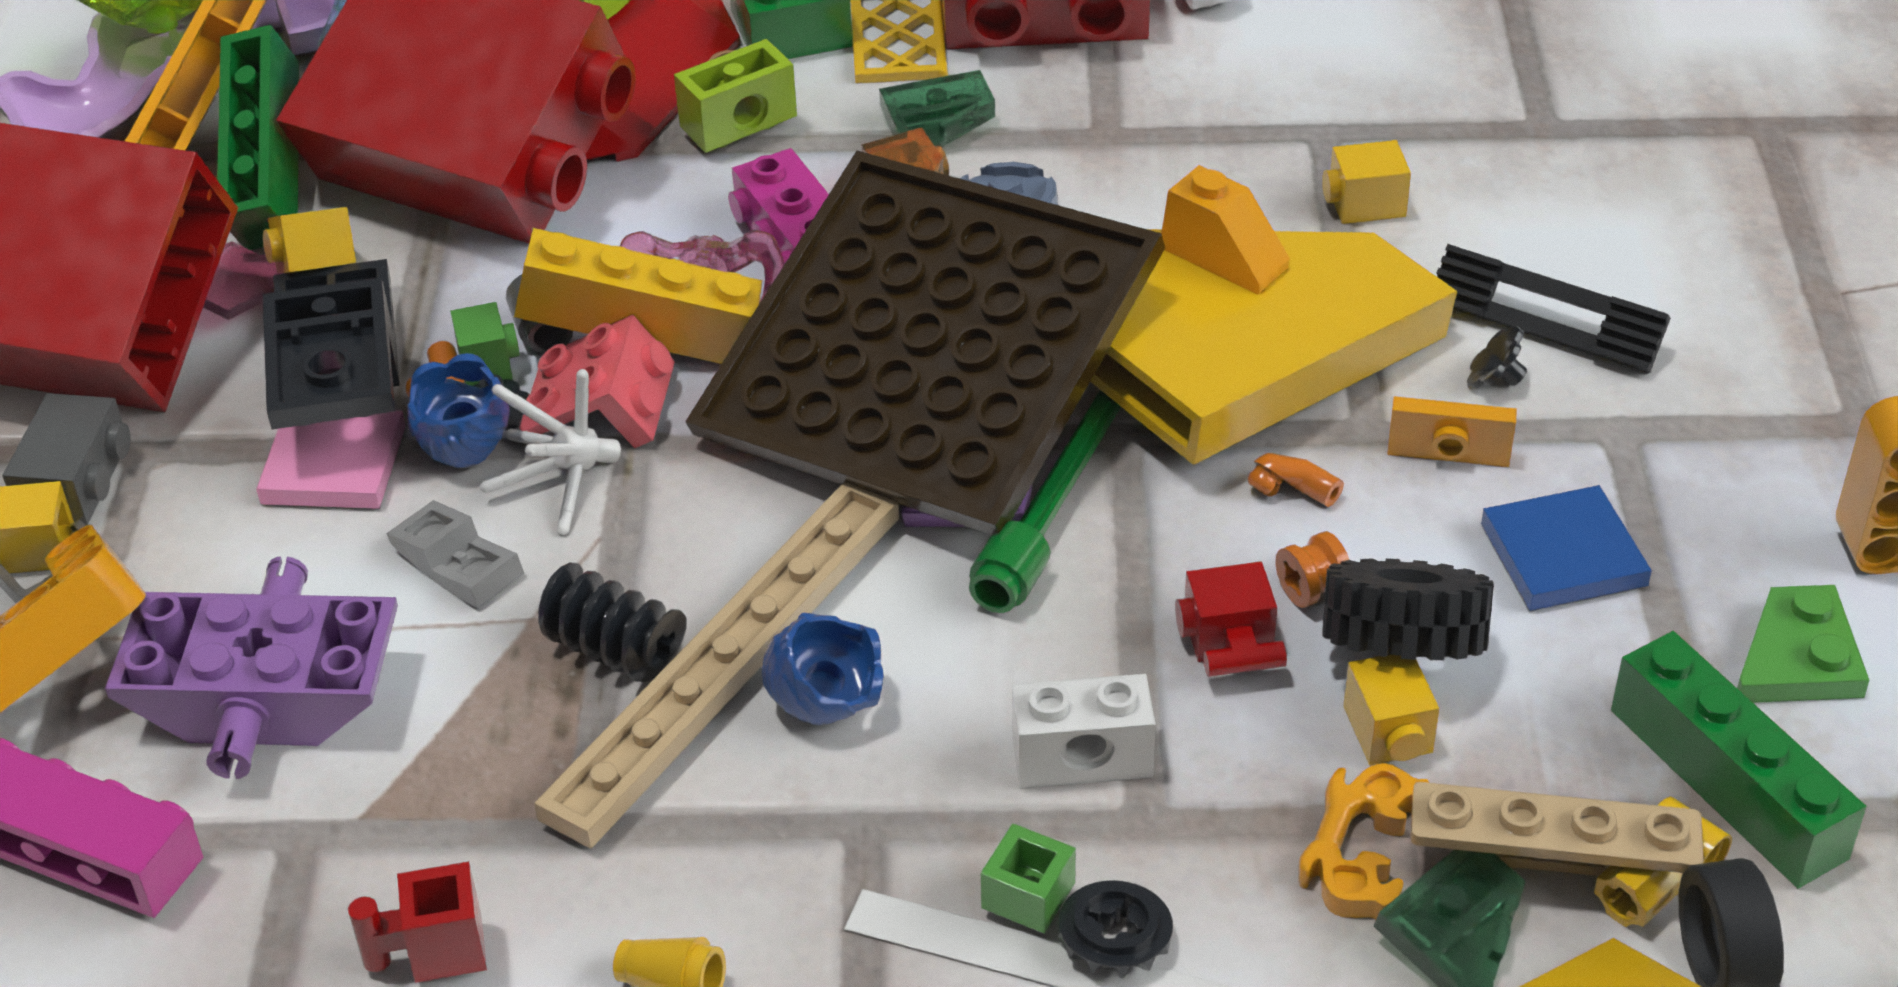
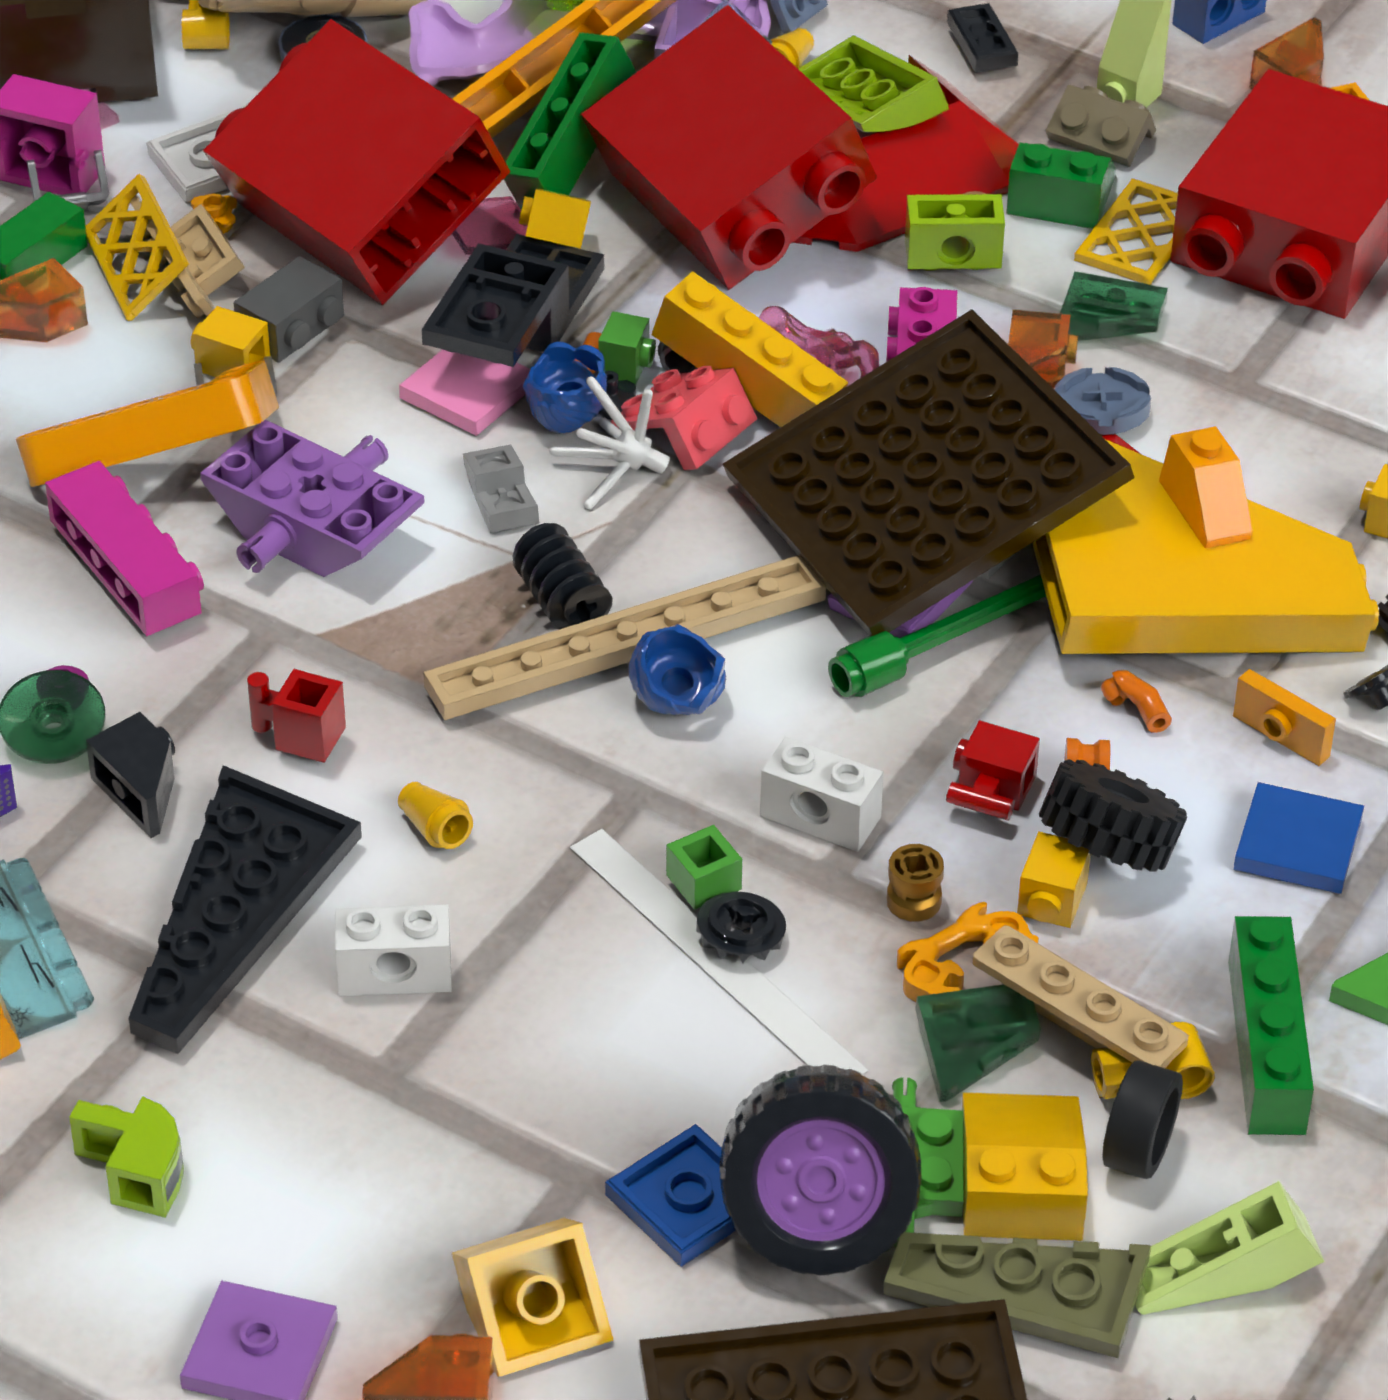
camera: 30 degrees right, 0 degrees up
(1257, 781) = (915, 882): none -> pearl gold wheel

